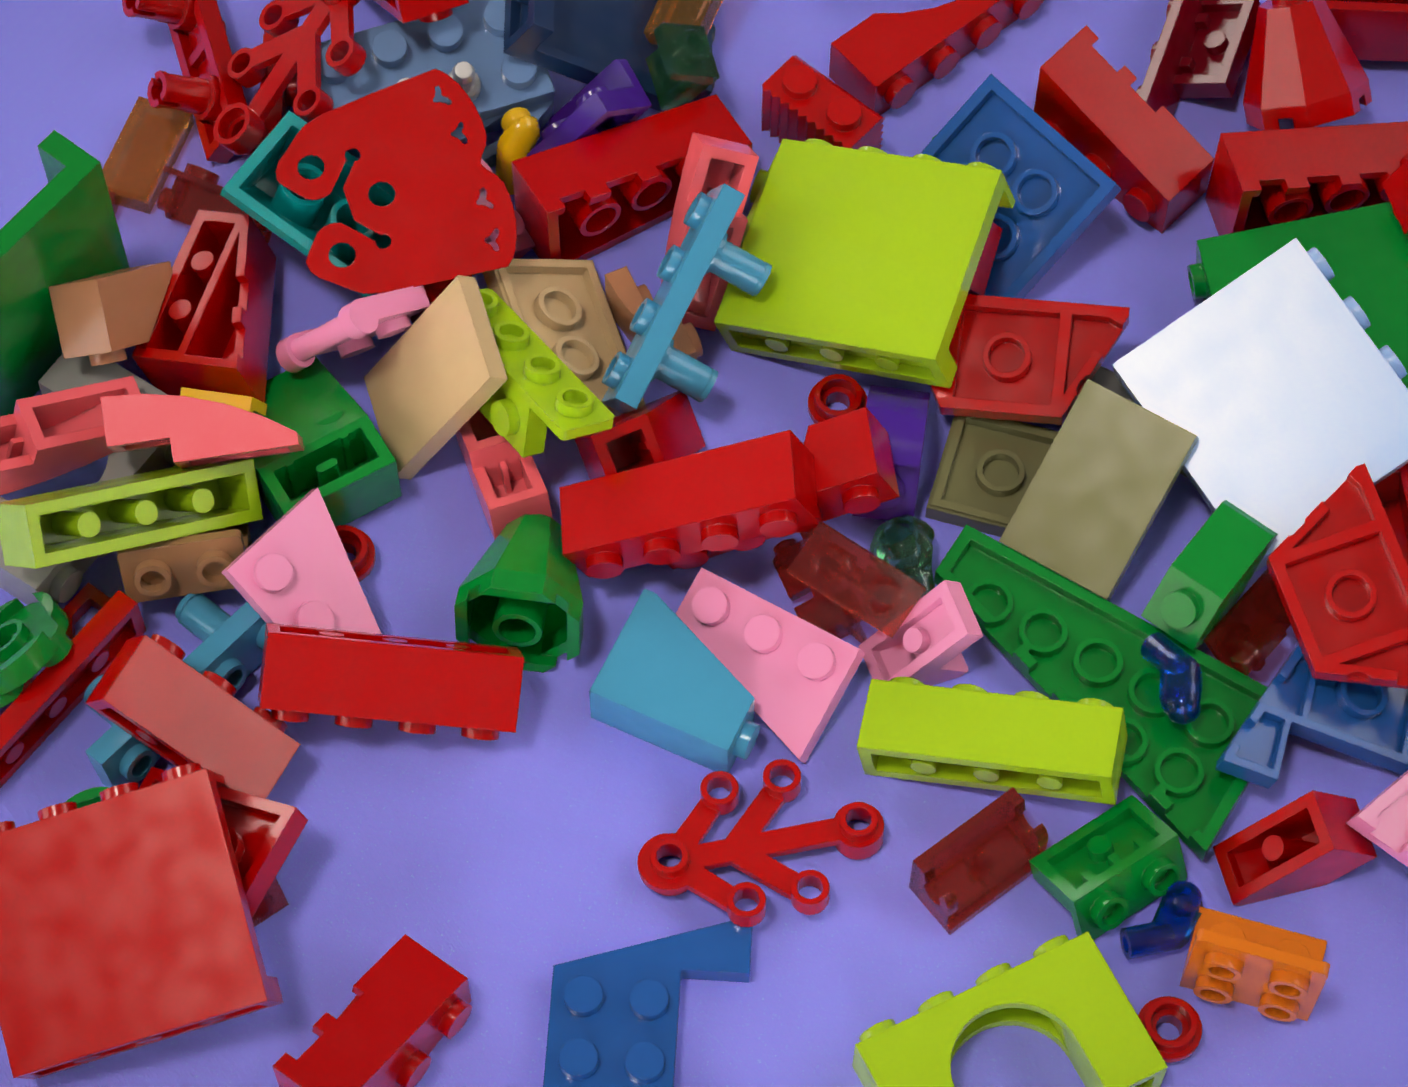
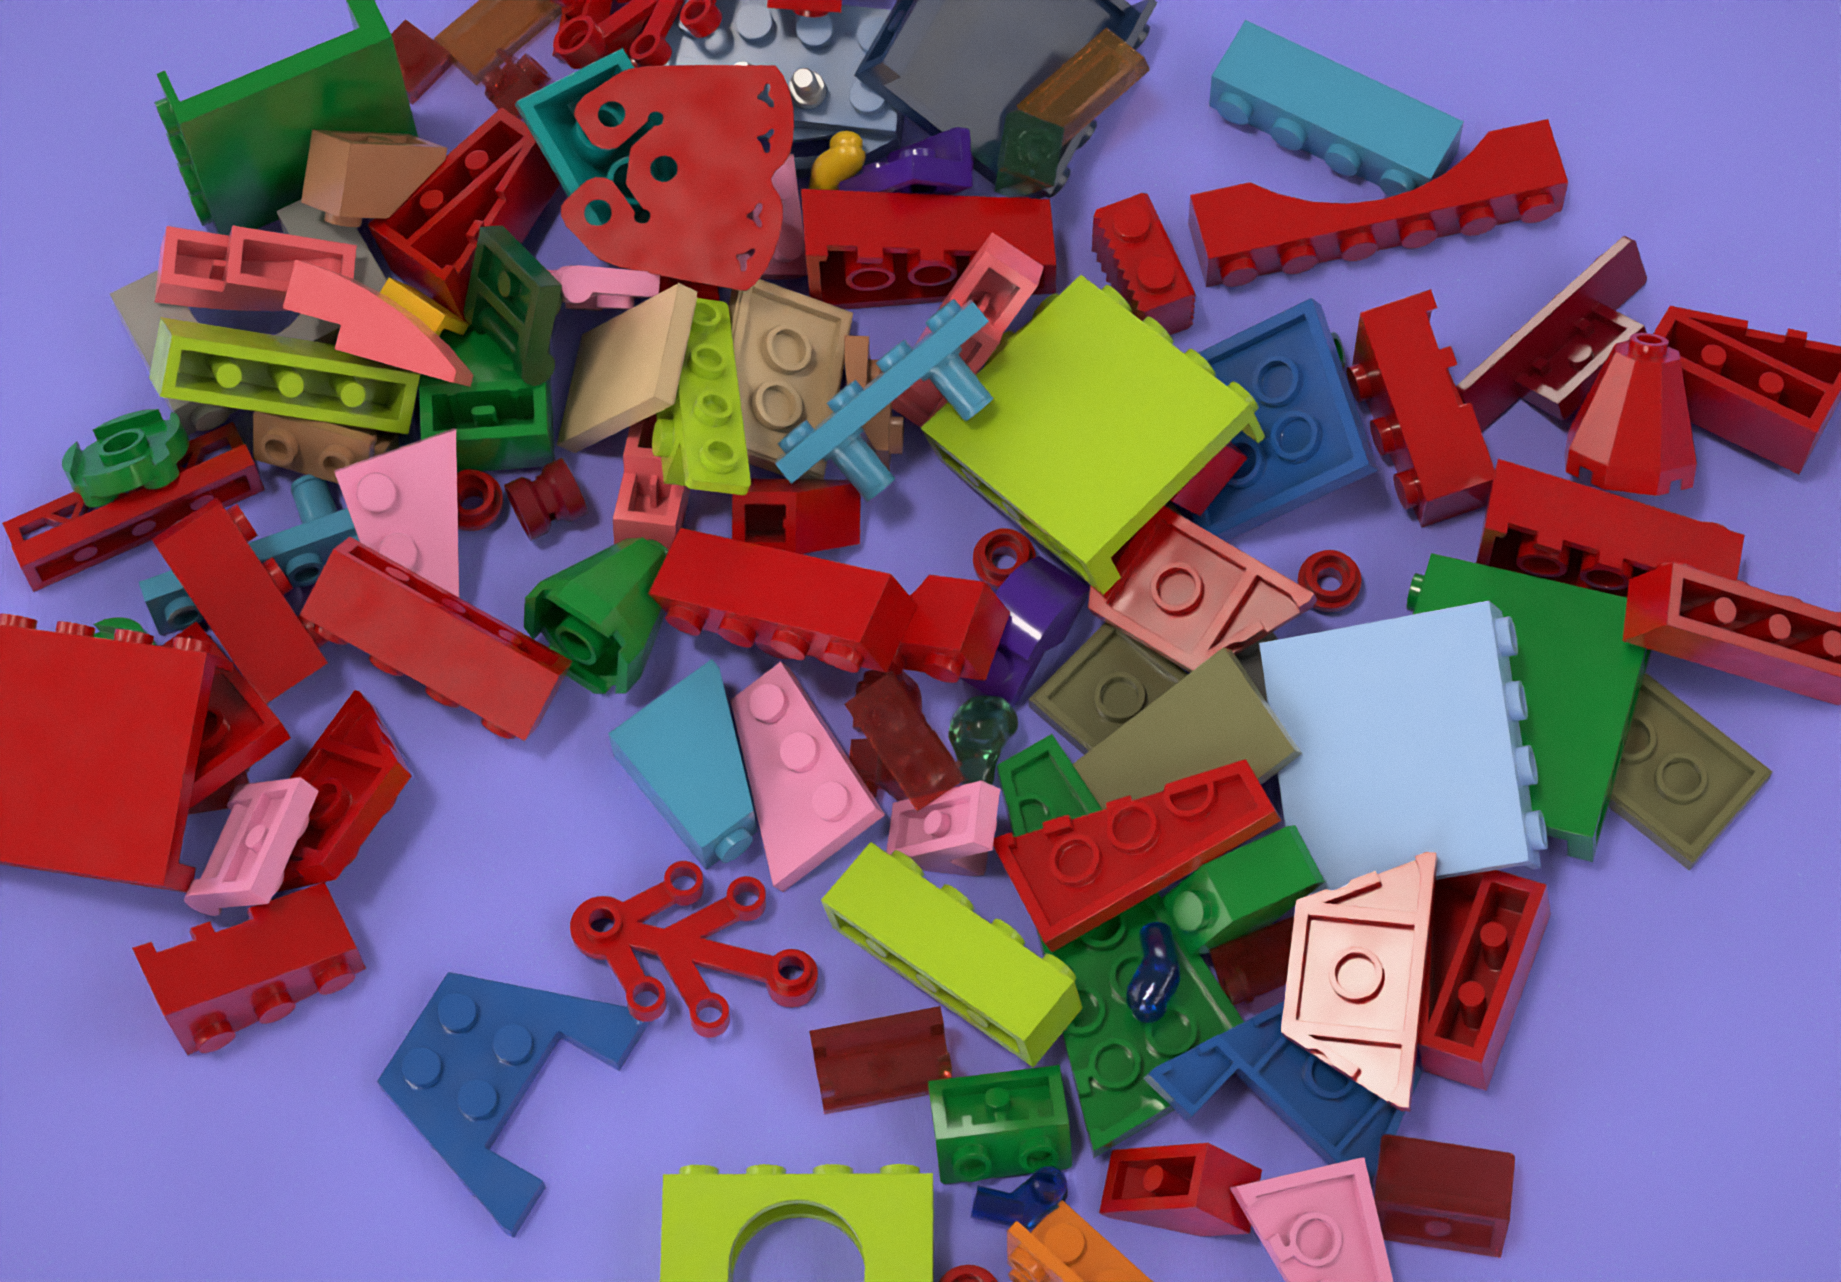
camera: 30 degrees right, 5 degrees up
(312, 345) = (513, 302): none -> dark green plate
(323, 931) = (253, 845): none -> bright pink plate
(362, 876) = (357, 784): none -> red wing
(415, 522) = (547, 498): none -> dark red wheel
(1090, 595) = (1110, 860): none -> red wing
(1122, 291) = (1336, 565): none -> red plate

